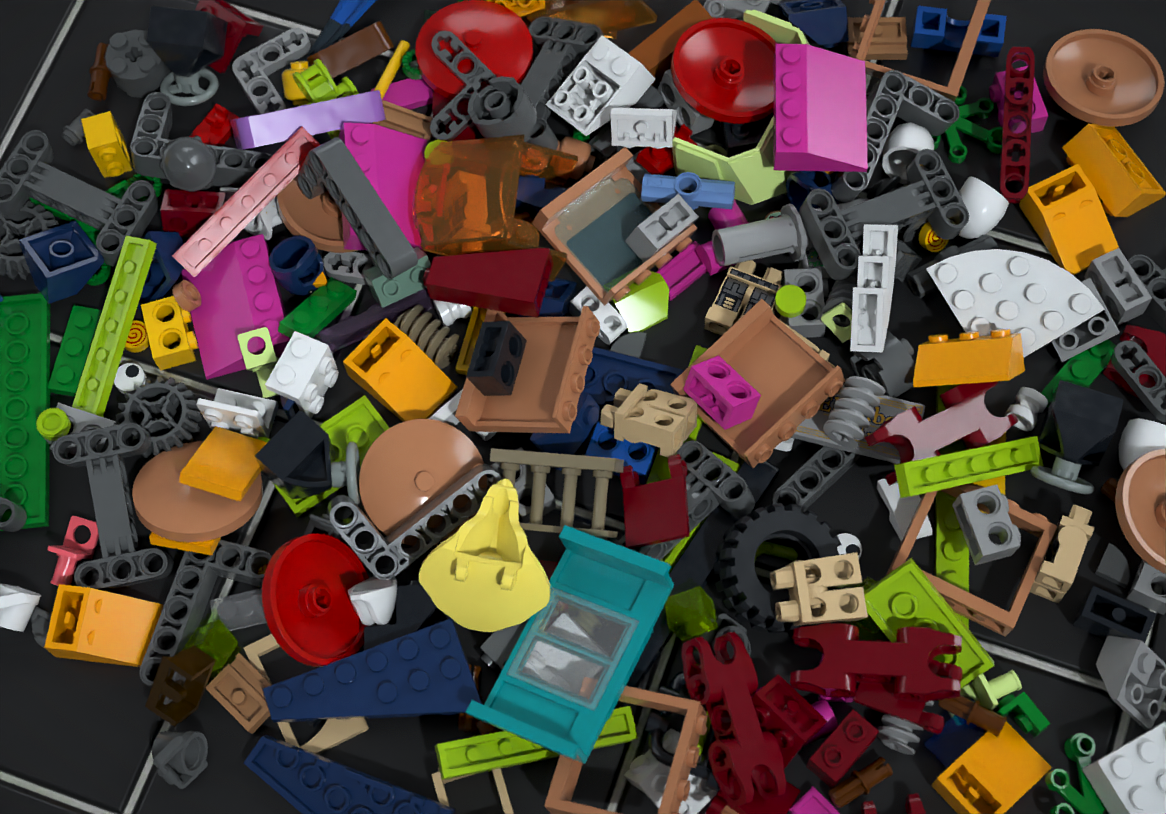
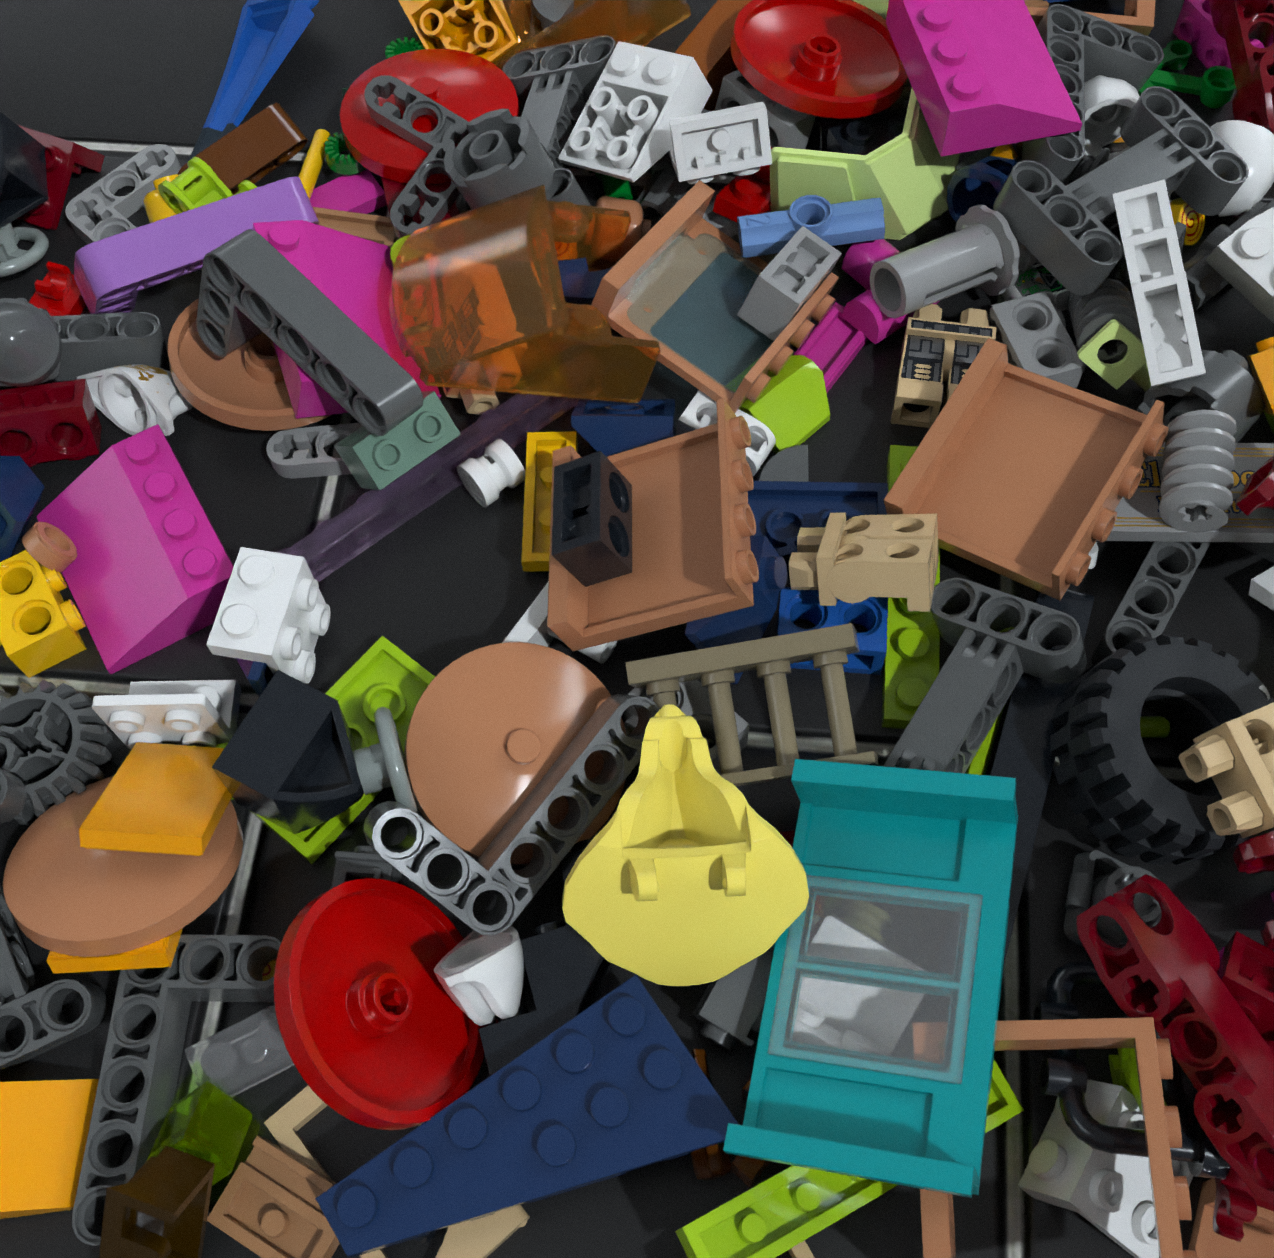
camera: 15 degrees left, 5 degrees down
(245, 203) = (114, 385): tile -> none
(263, 363) = (192, 622): yellowish green bracket -> none
(298, 266) = (227, 460): dark blue piece -> none
(318, 309) = (274, 517): green plate -> none
(398, 373) = (428, 588): light orange slope -> none
(427, 335) = (461, 523): dark tan piece -> none
(492, 280) = (549, 404): dark red slope -> none
(656, 509) = (933, 700): dark red flag -> none
(690, 613) = (1047, 863): clear neon green panel -> none
(721, 392) = (975, 490): dark pink brick -> none
(790, 301) = (1024, 340): lime tile -> none

